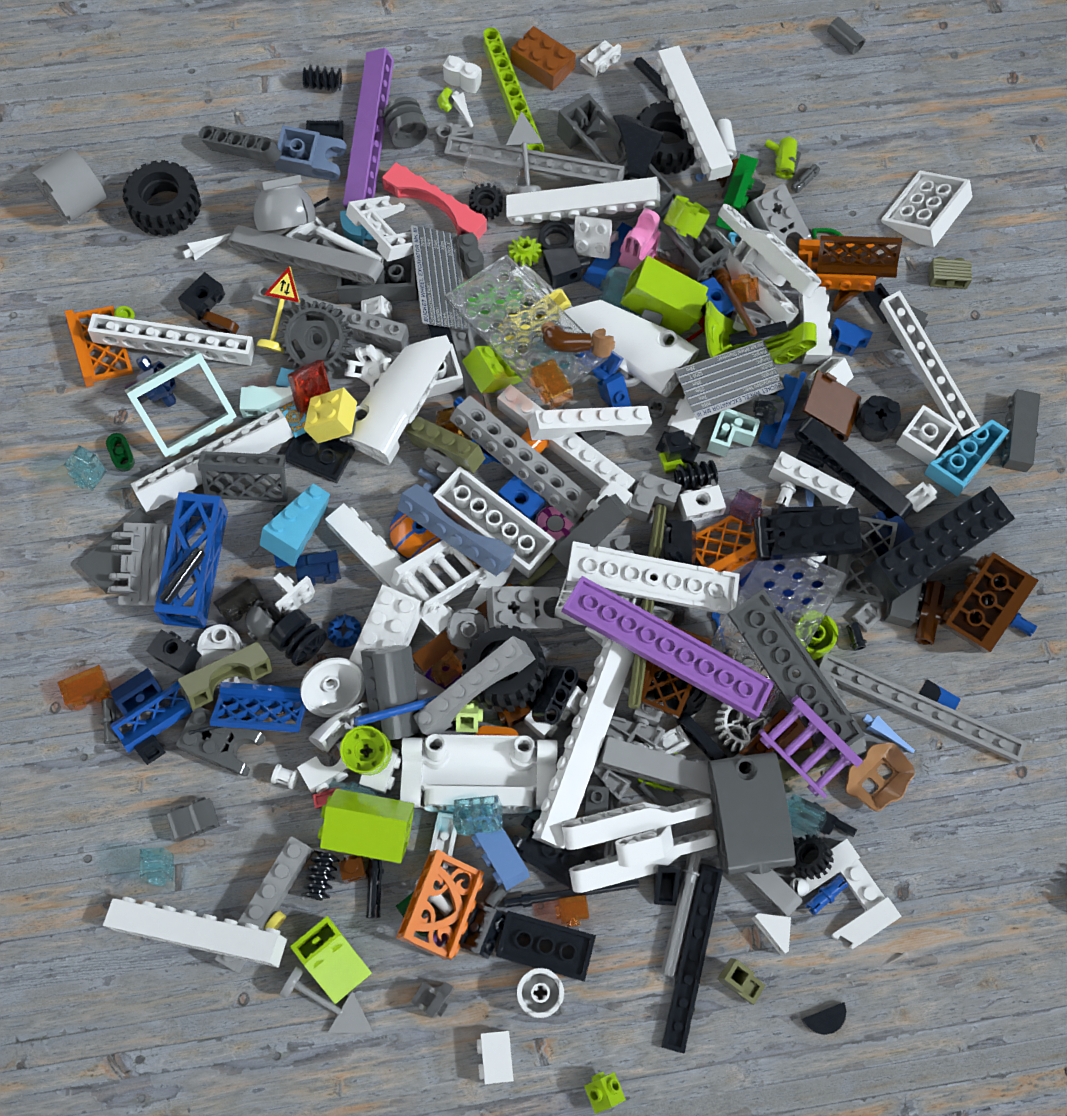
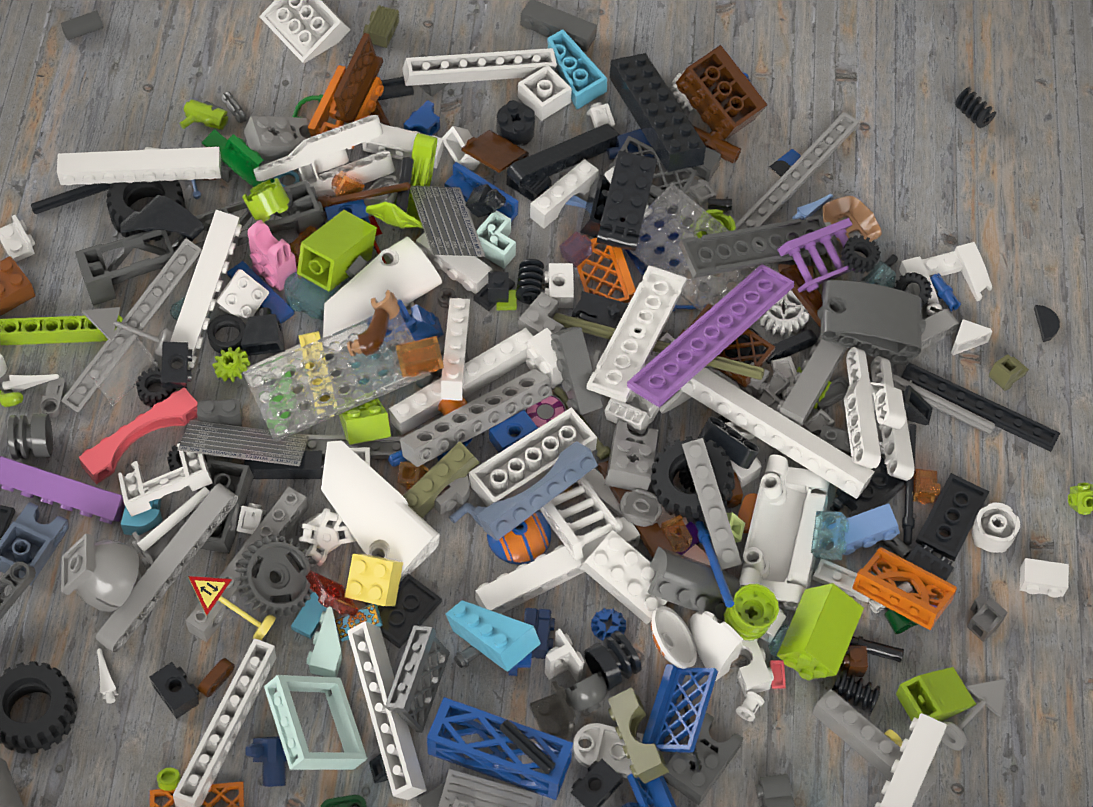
camera: 75 degrees left, 10 degrees down
(491, 199) = (171, 353): none -> black brick
(786, 493) = (568, 217): white pin -> none
(833, 777) = (865, 247): none -> black tyre

